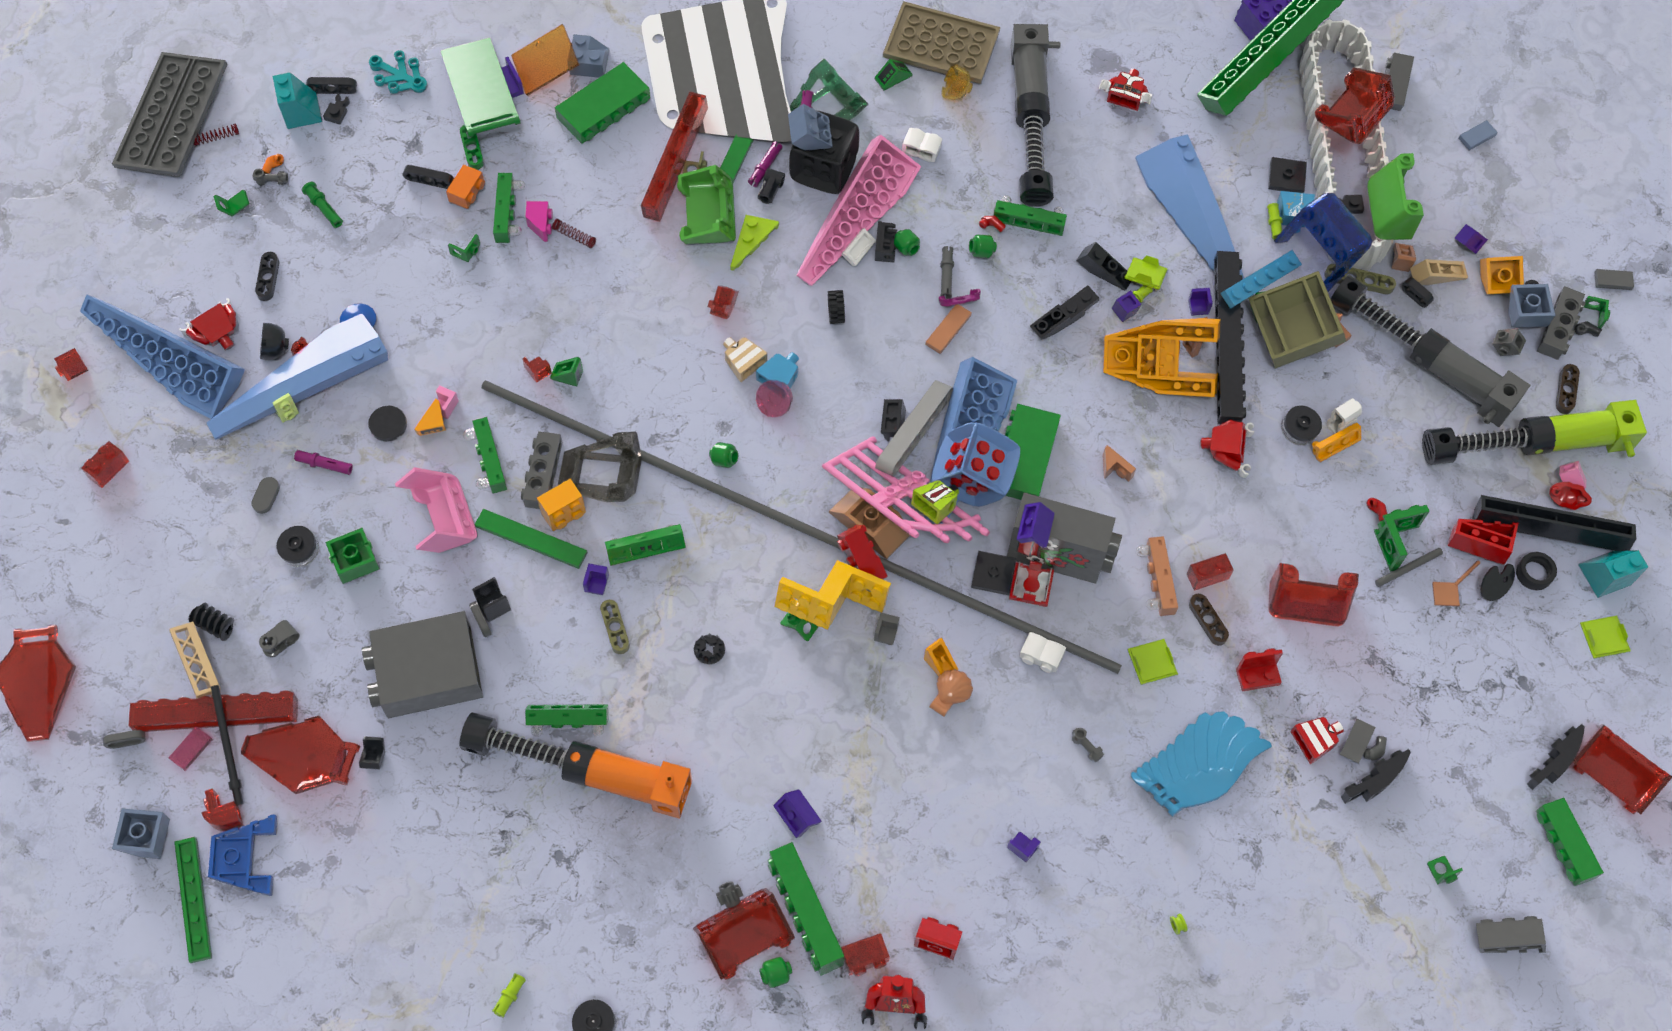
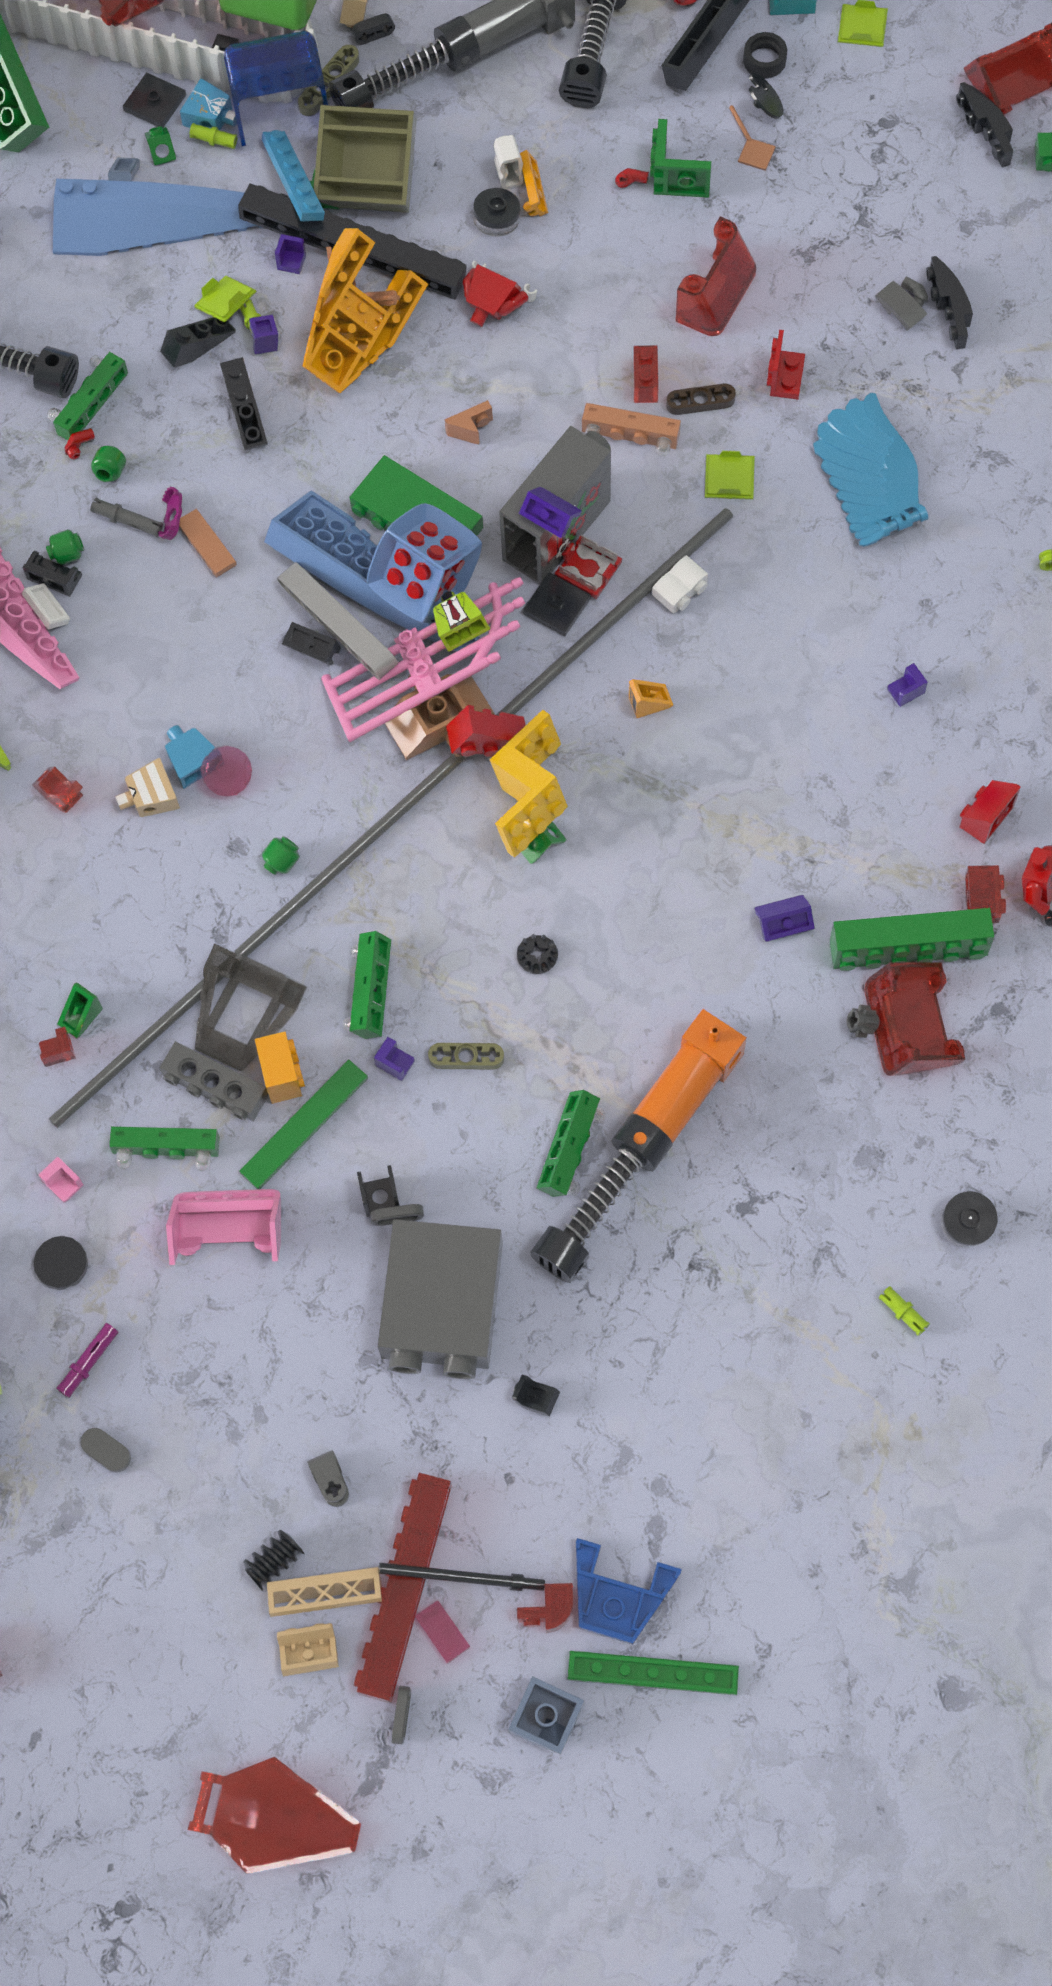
camera: 65 degrees left, 5 degrees up
(155, 665) = (307, 1649): none -> tan bracket
(297, 546) = (202, 1422): black piece -> none
(302, 754) = (506, 1486): clear red windscreen -> none
(352, 555) = (247, 1351): green brick -> none
(432, 420) = (83, 1198): light orange slope -> none
(775, 972) = (973, 998): green head -> none
(836, 306) = (126, 656): black tyre -> none
(886, 629) = (585, 744): dark grey panel -> none
(952, 688) = (692, 695): nougat animal -> none
(1079, 737) = (797, 579): dark grey bar -> none
(1185, 365) = (384, 298): none -> nougat axle
(1218, 174) = (124, 169): none -> sand blue tile
(1256, 186) = (156, 137): none -> green bracket
(1316, 737) = (884, 343): red torso -> none
(1404, 257) = (325, 22): nougat slope -> none
(1408, 567) = (714, 184): dark grey bar -> none
(1485, 540) = (712, 86): red wedge -> none

